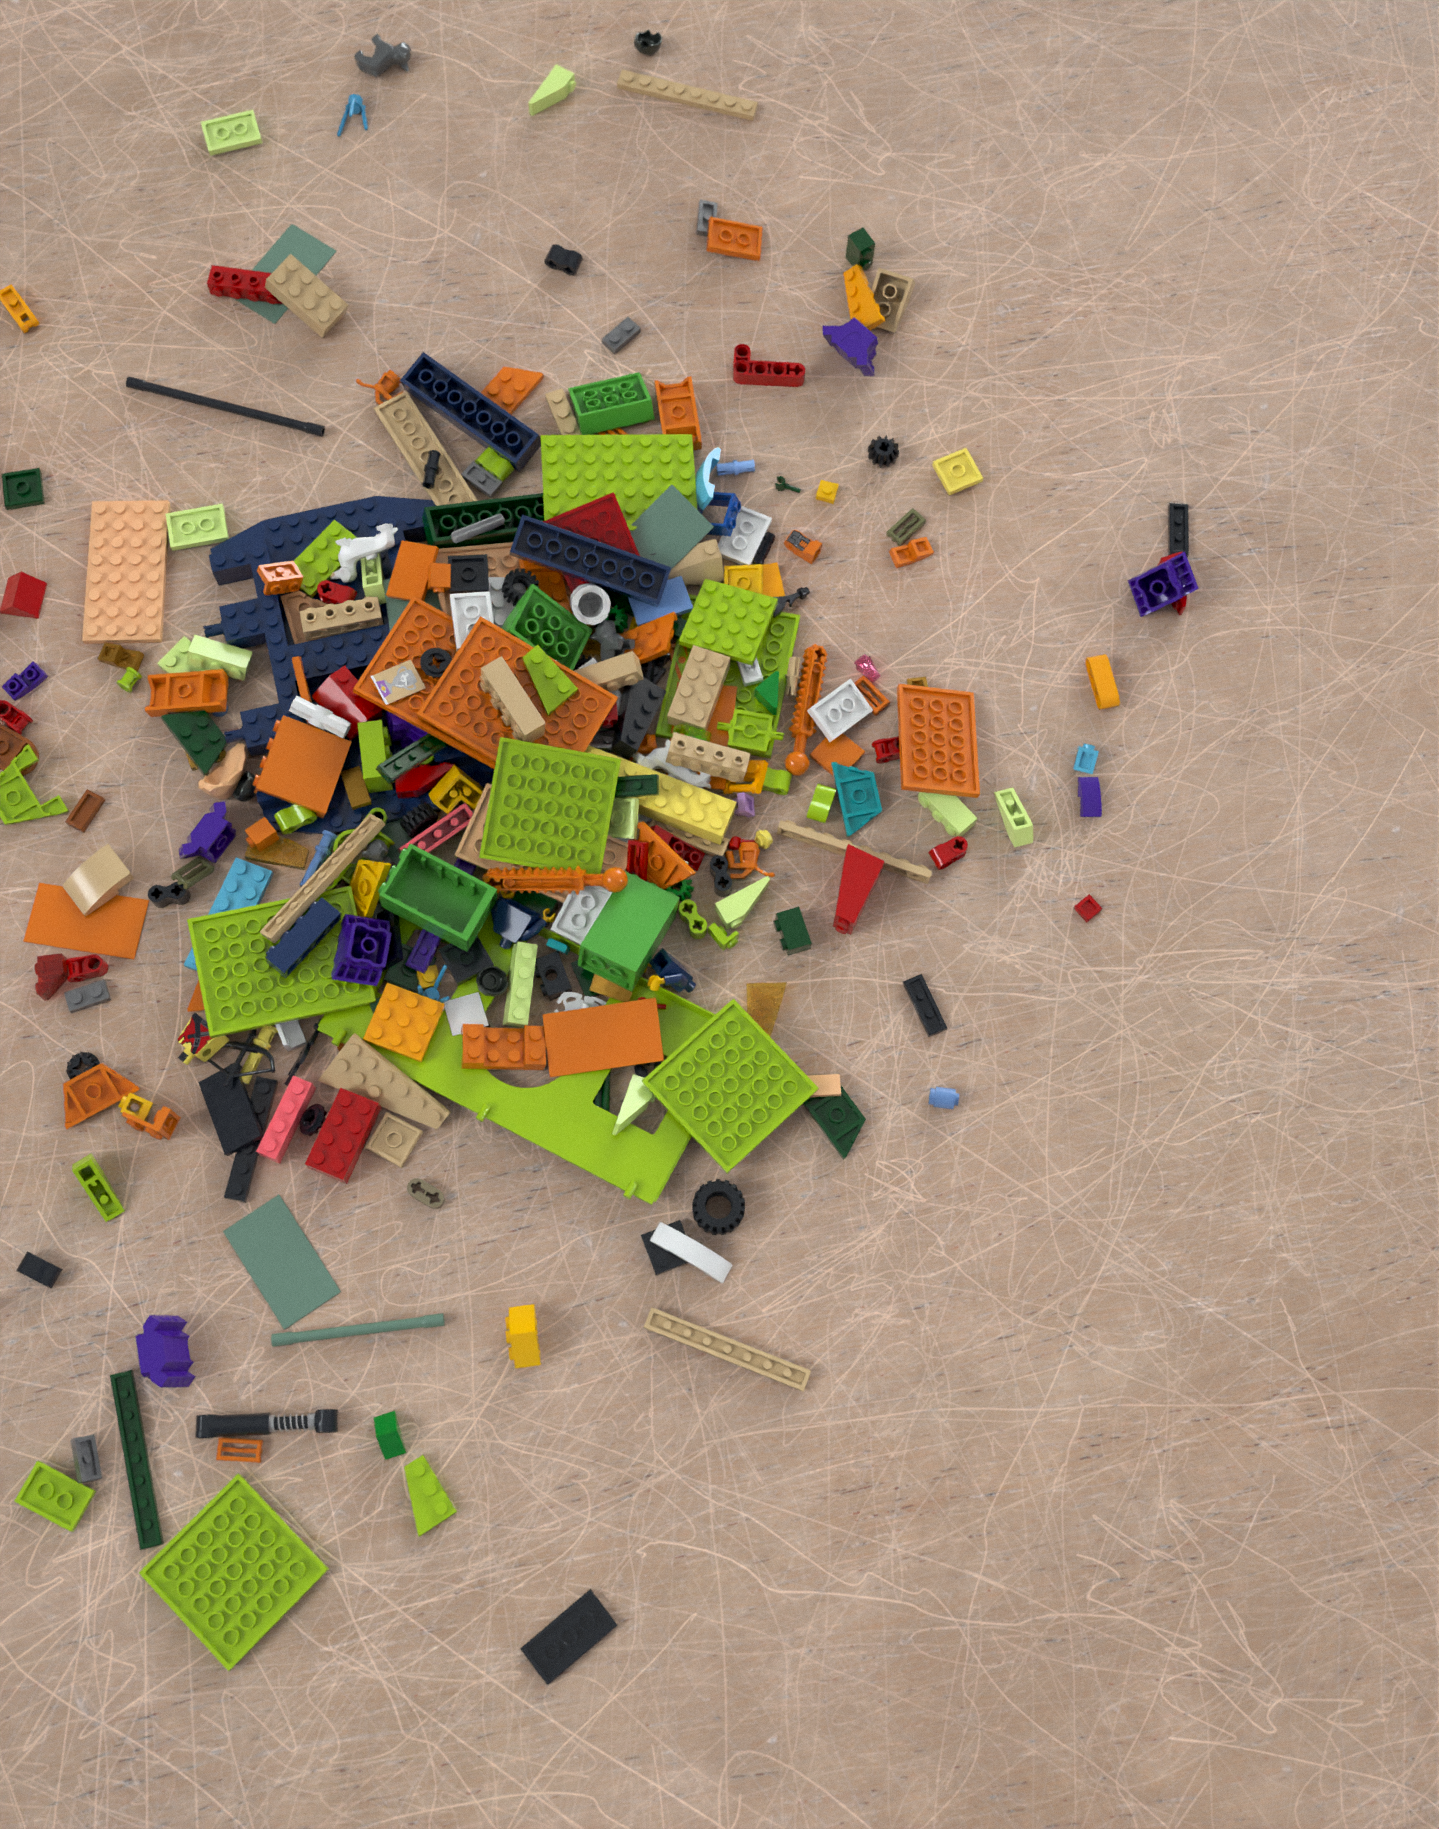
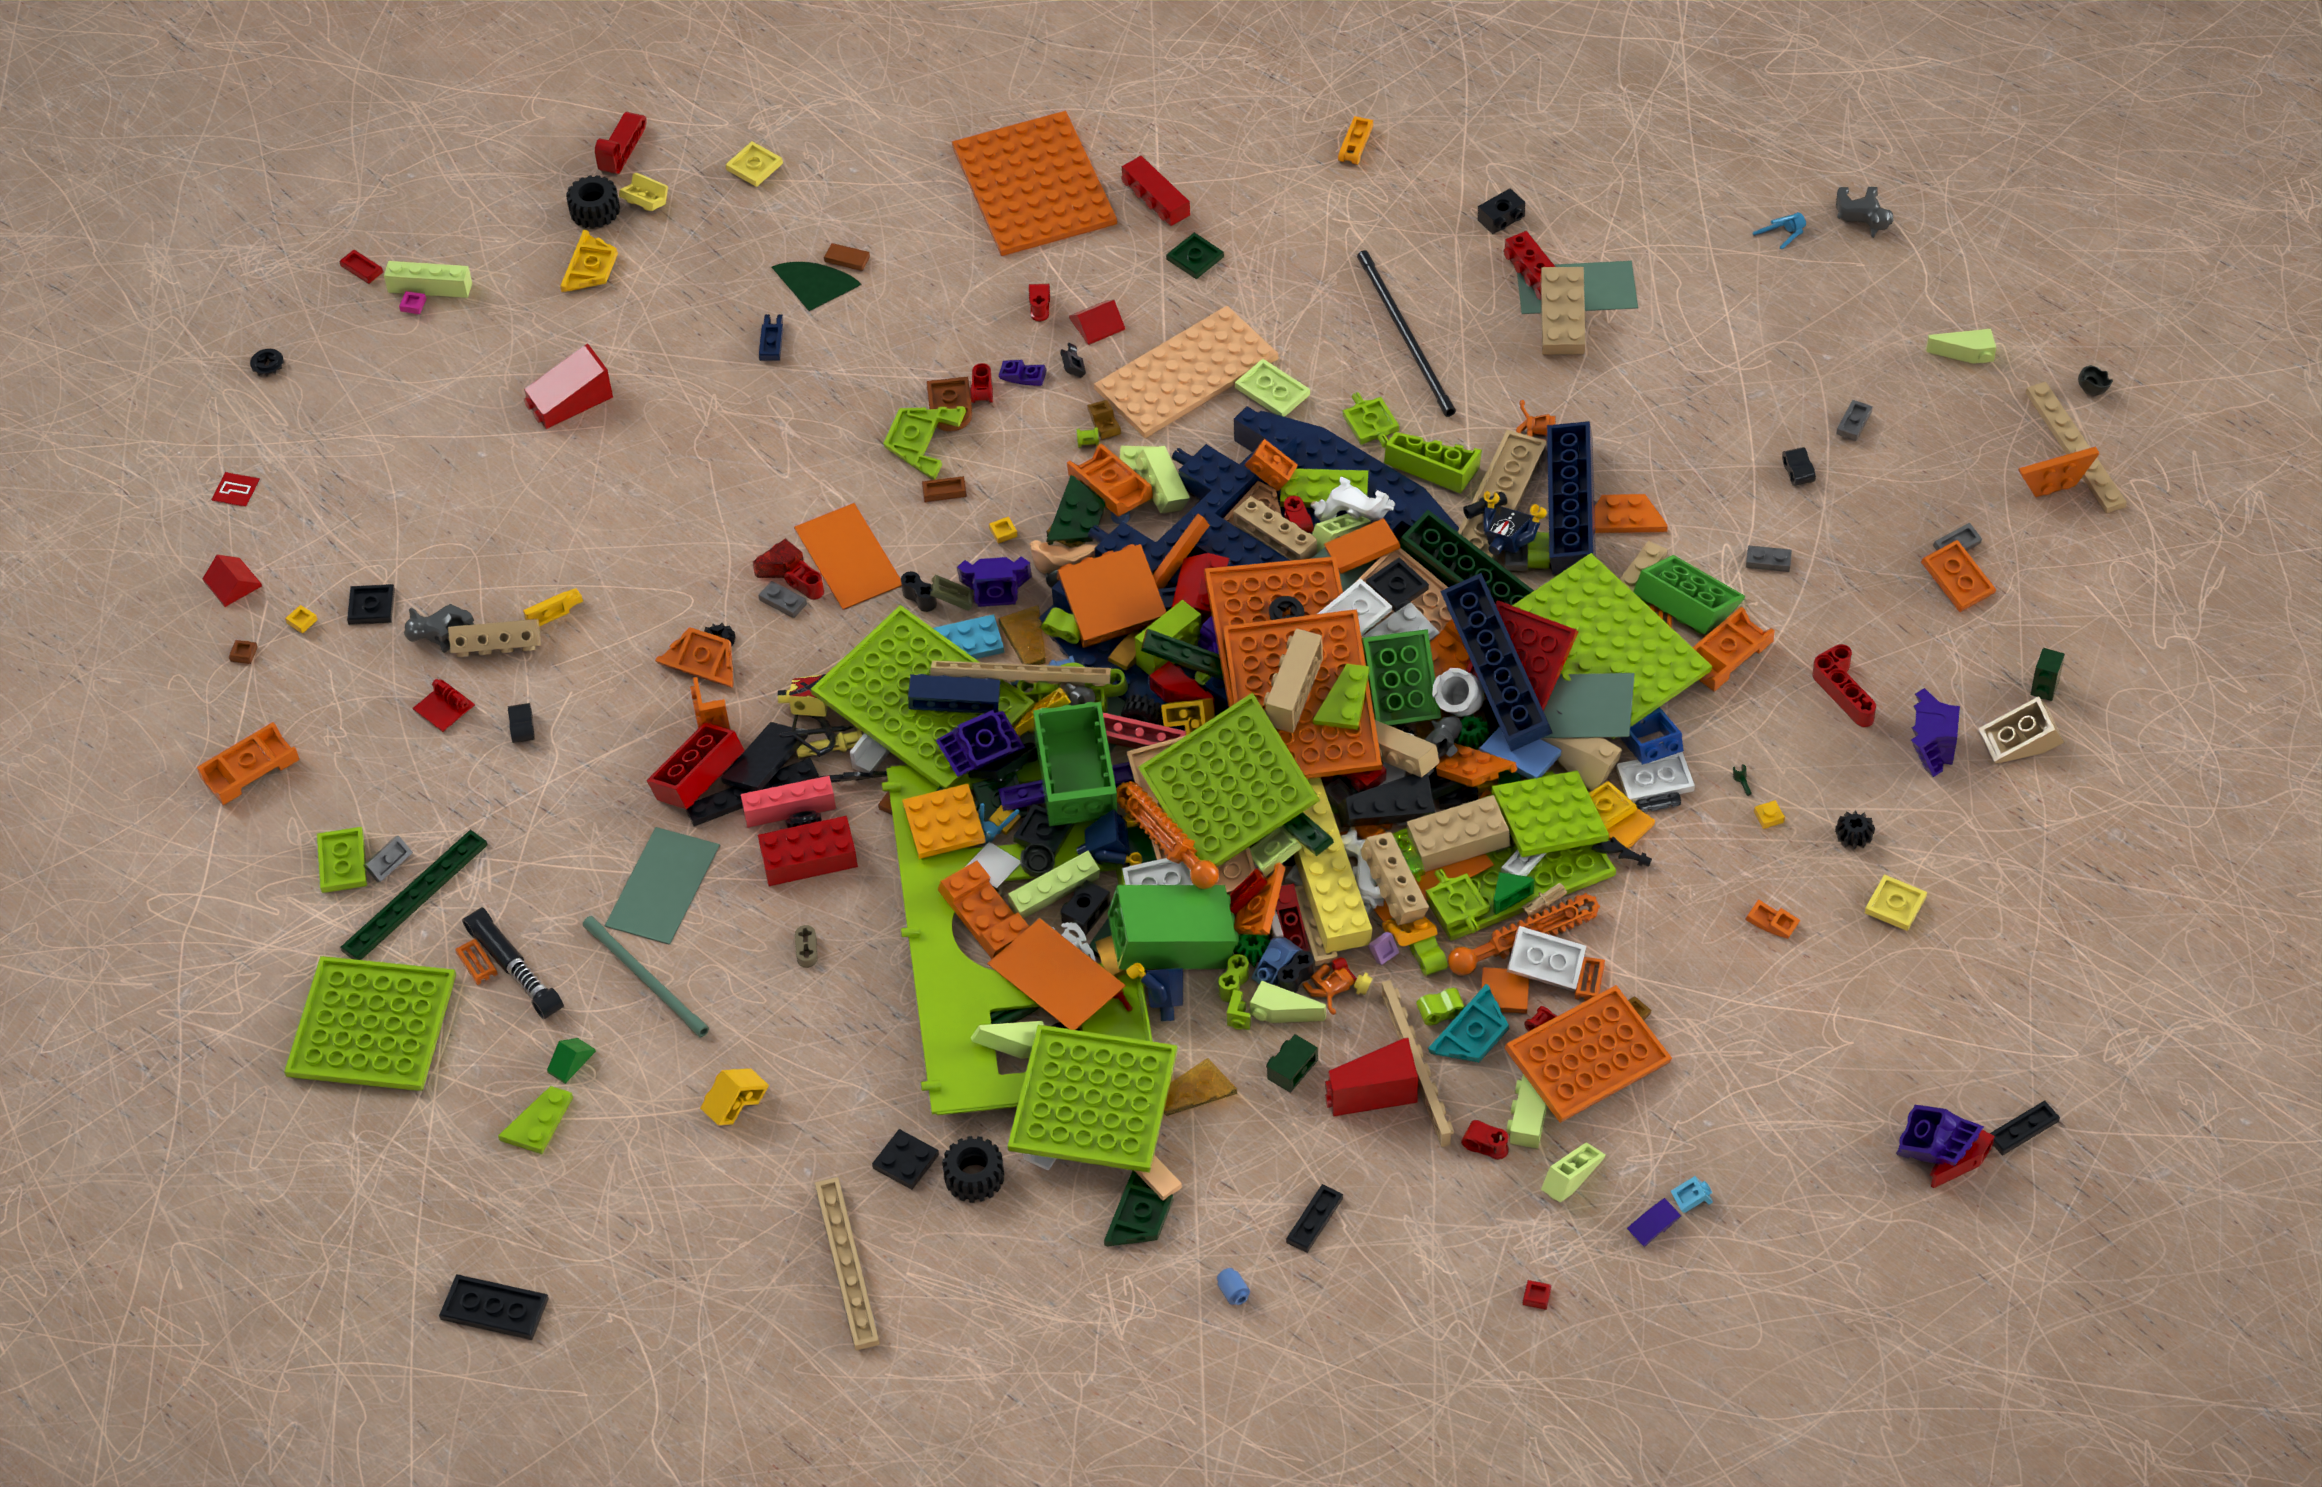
camera: 60 degrees right, 20 degrees down
(48, 640) = (1072, 362): none -> black plate
(97, 880) = (889, 535): tan slope -> none
(97, 1187) = (622, 713): lime slope -> none
(144, 1106) = (711, 683): yellow brick -> none
(163, 797) = (1003, 530): none -> yellow plate
(165, 1351) = (518, 847): dark purple slope -> none
(174, 267) = (1501, 211): none -> black brick
(199, 1166) = (695, 765): none -> red brick
(231, 132) = (1674, 161): yellowish green plate -> none
(261, 835) = (1026, 613): orange brick -> none
(284, 485) = (1370, 420): none -> lime plate
(320, 717) = (1165, 573): white piece -> none
(360, 473) = (1433, 461): none -> lime wedge
(371, 1075) = (876, 839): tan wing -> none
(394, 1140) = (835, 892): tan tile -> none
(398, 682) = (1242, 597): sticker -> none
(439, 577) = (1370, 562): orange brick -> none
(467, 469) = (1509, 528): none -> torso
(477, 528) = (1446, 560): light grey axle -> none
(517, 577) = (1427, 620): black tyre -> none
(554, 199) = (1854, 420): none -> flat silver plate
(558, 946) = (1112, 884): teal tile -> none
(691, 1252) = (913, 1177): white slope -> none
(703, 882) = (1278, 954): none -> medium blue slope
(704, 489) = (1699, 699): medium azure slope -> none
(709, 117) = (2058, 472): none -> orange wing
(735, 467) = (1720, 728): light blue pin -> none
(803, 546) = (1691, 830): orange leg -> none
(861, 299) = (1990, 714): light orange wing -> none
(867, 667) = (1615, 956): clear pink cone -> none
(895, 537) = (1795, 903): olive tile -> none
(1102, 681) = (1788, 1159): light orange beam -> none

